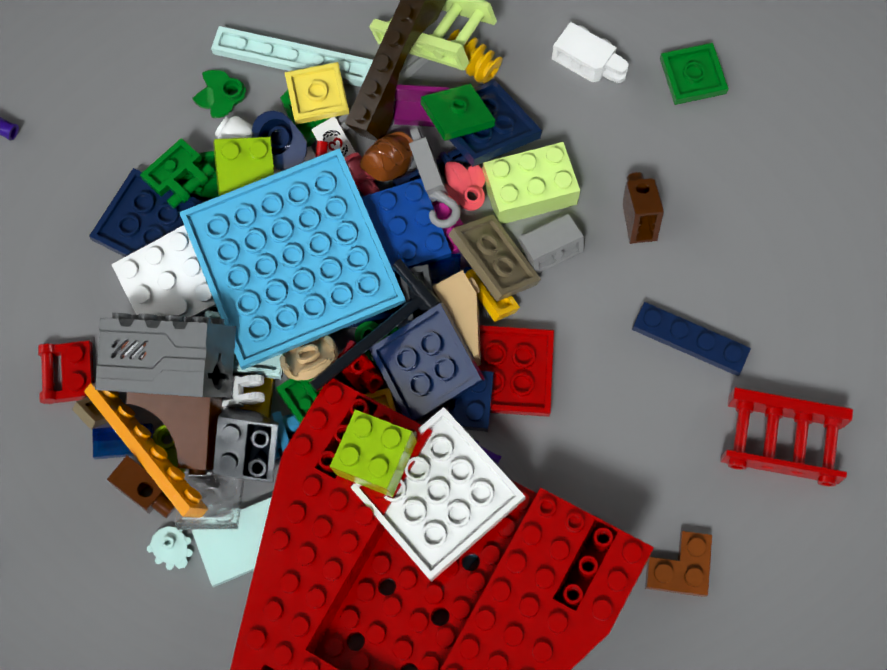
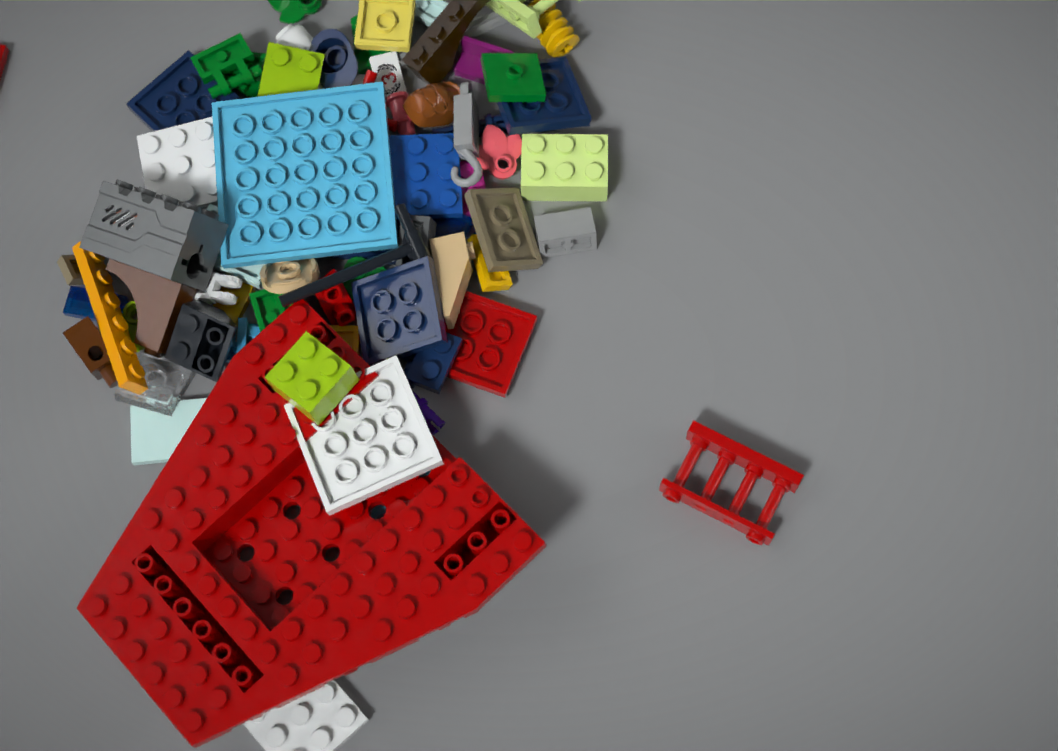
camera: 20 degrees right, 0 degrees up
(75, 367) = (72, 225): red plate -> none
(170, 547) = (106, 416): light aqua piece -> none
(589, 55) = (667, 56): white hinge -> none
(639, 200) = (666, 215): reddish brown torso -> none
(686, 575) = (584, 587): dark orange plate -> none
(691, 339) = (672, 363): dark blue plate -> none
(693, 73) = (768, 103): green plate -> none

